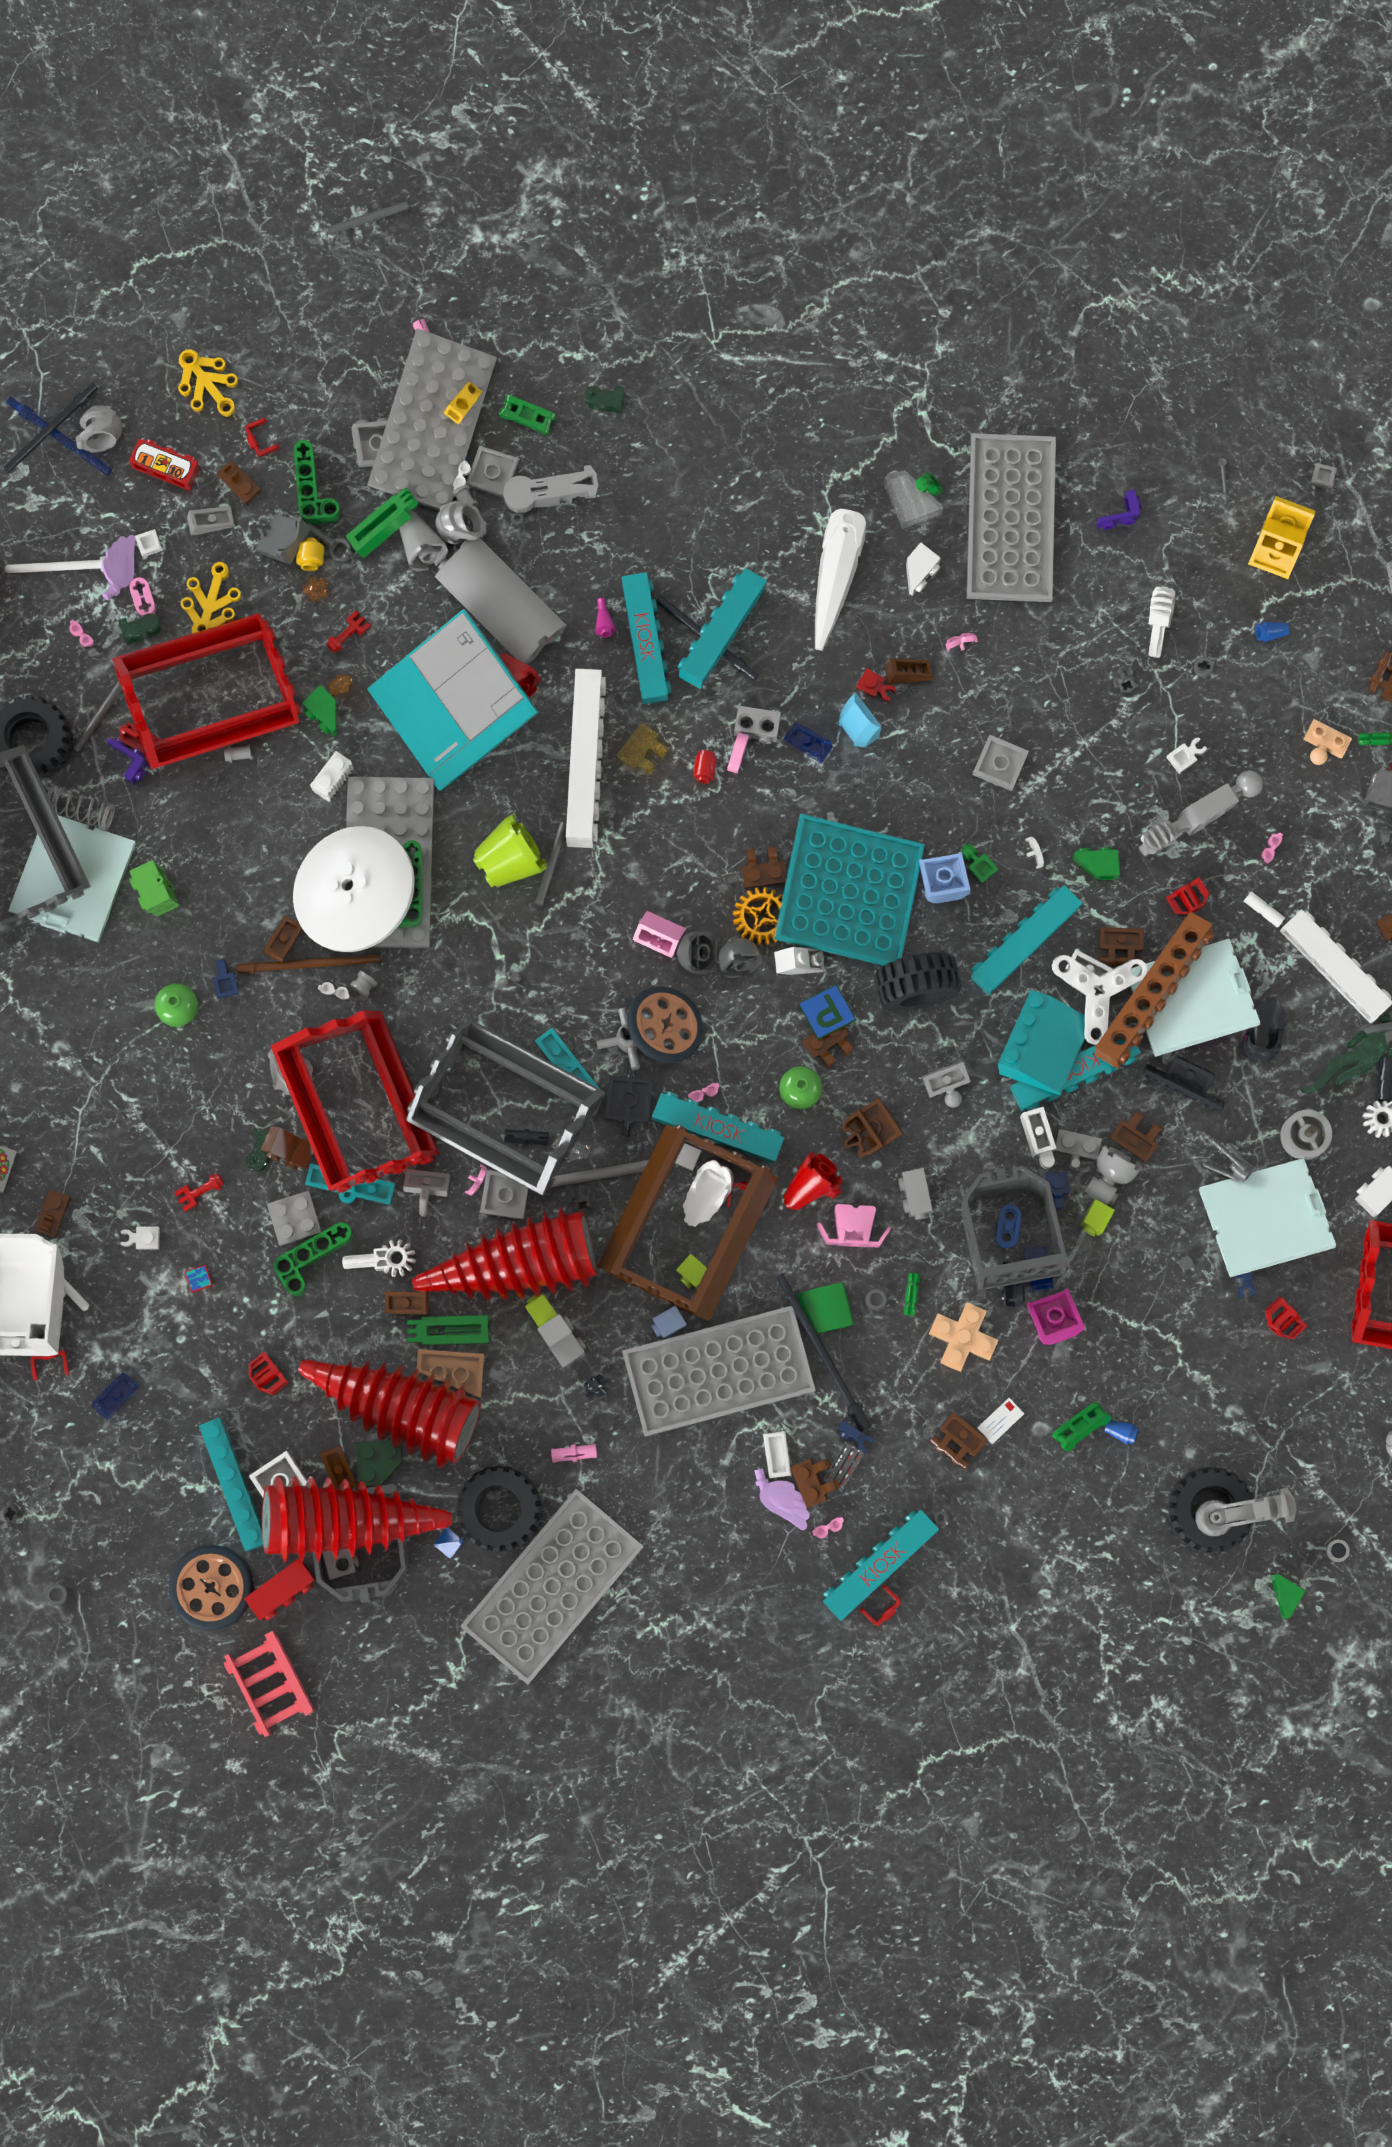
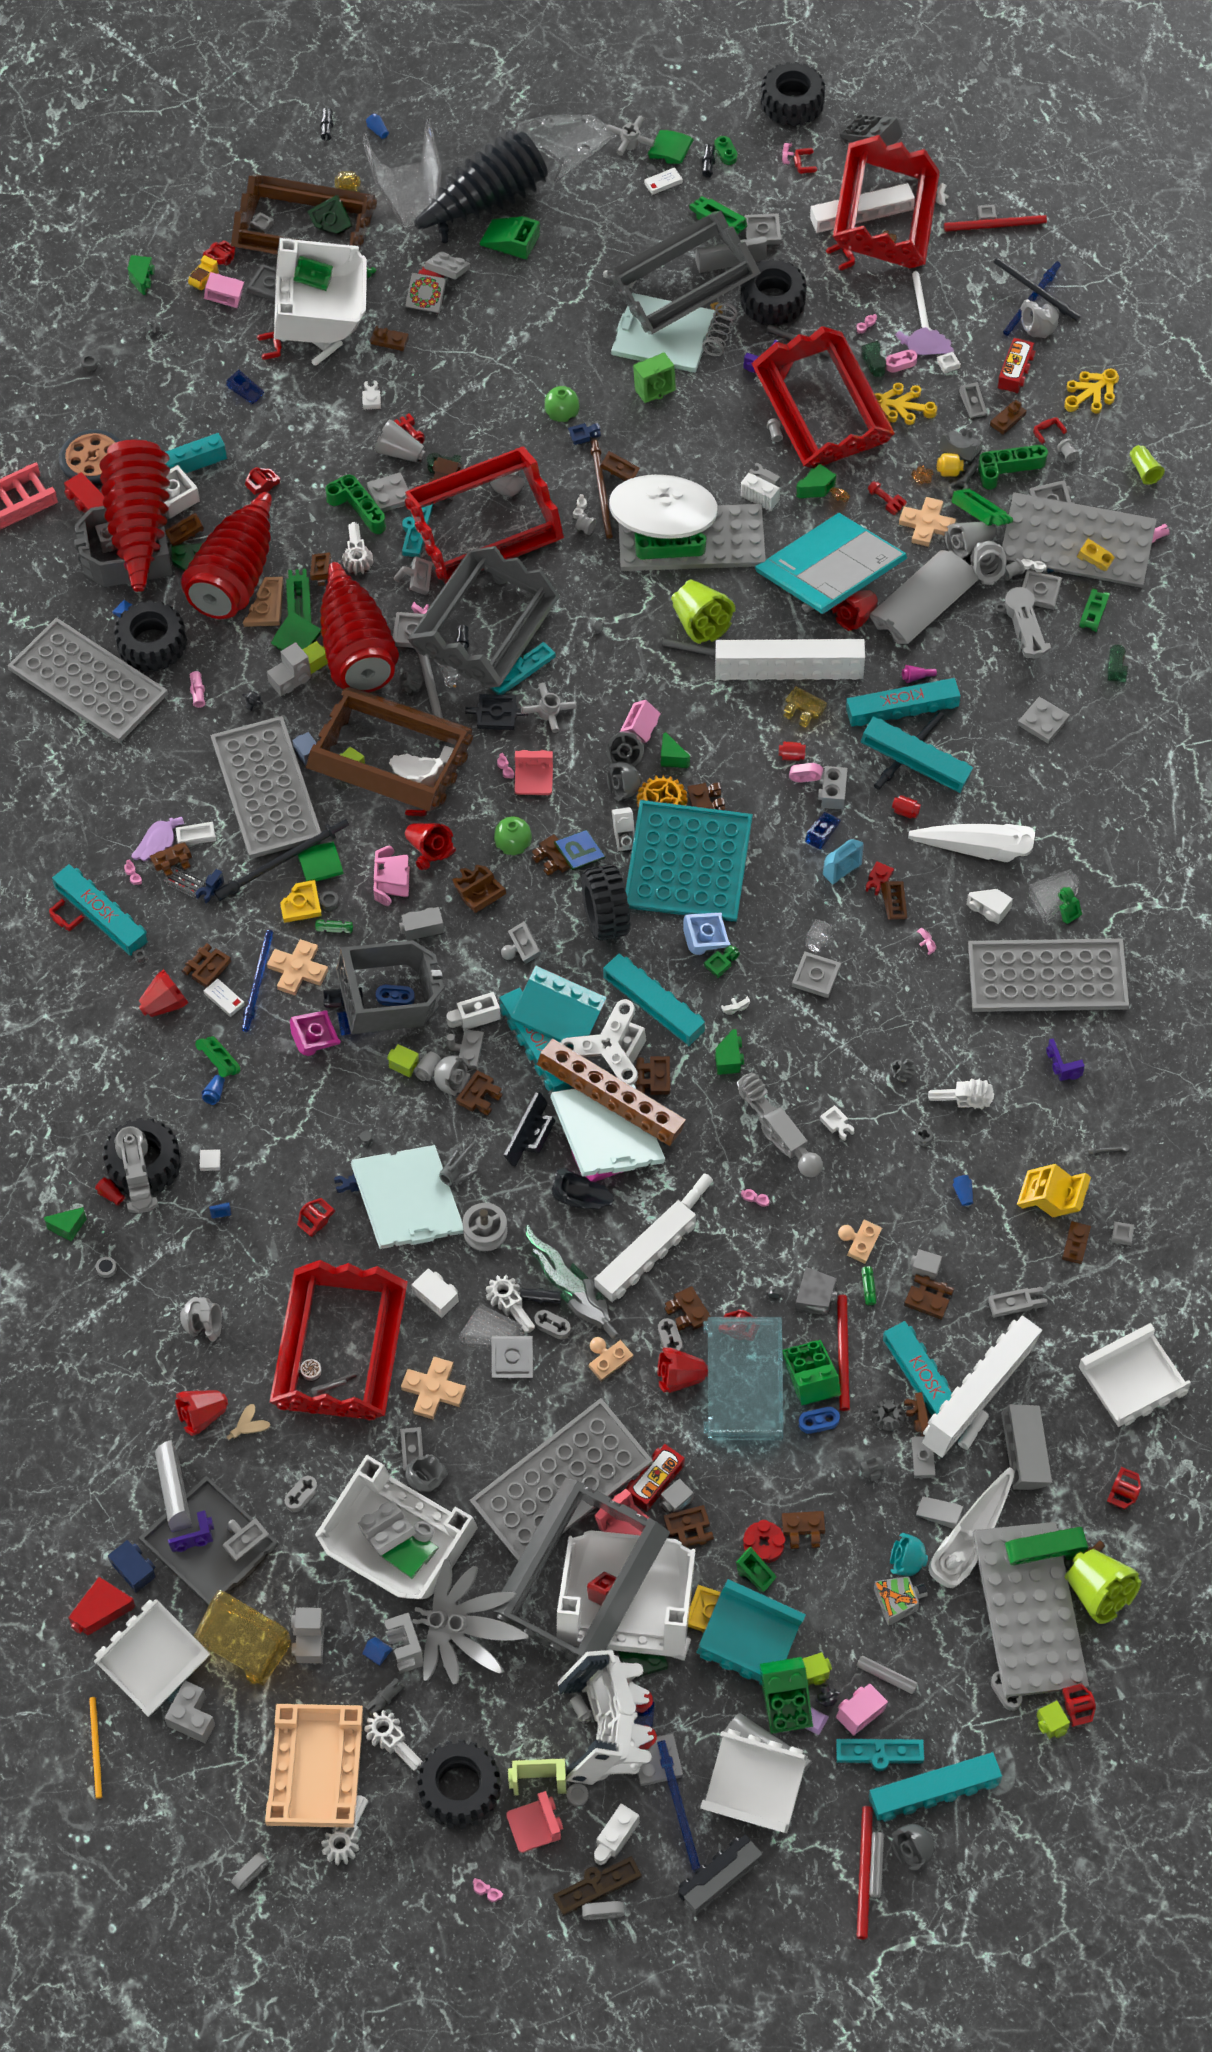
camera: 90 degrees right, 20 degrees down
(198, 1278) = (339, 433): tile -> none
(227, 1203) = (399, 443): none -> light grey cone
(296, 418) = (1068, 450): none -> light grey bush
(305, 769) = (766, 474): none -> light grey bar
(325, 333) = (1146, 465): none -> lime plant
(385, 589) = (926, 521): none -> light nougat plate
(507, 1333) = (295, 630): none -> green slope
(674, 487) = (1043, 720): none -> light grey plate
(675, 1001) = (581, 715): wedge -> none
(699, 902) = (673, 754): none -> green slope
(719, 1128) = (474, 776): teal brick -> none
(720, 1060) = (533, 772): none -> coral bracket
(787, 647) = (906, 807): none -> red brick
(880, 1331) = (301, 902): none -> yellow plate
(952, 756) = (818, 935): none -> clear brick
(1003, 1489) = (161, 996): none -> red cone
(1021, 1391) = (249, 1011): none -> clear blue bar
(1059, 1187) = (432, 1034): dark blue plate -> none
(1181, 892) = (702, 1128): red piece -> none
(1208, 1436) = (210, 1160): none -> white tile
(1247, 1548) = (109, 1190): none -> red cone
(1272, 1422) = (220, 1210): none -> blue slope
(1333, 523) = (1076, 1242): none -> reddish brown plate
(1360, 677) = (926, 1264): none -> light grey brick

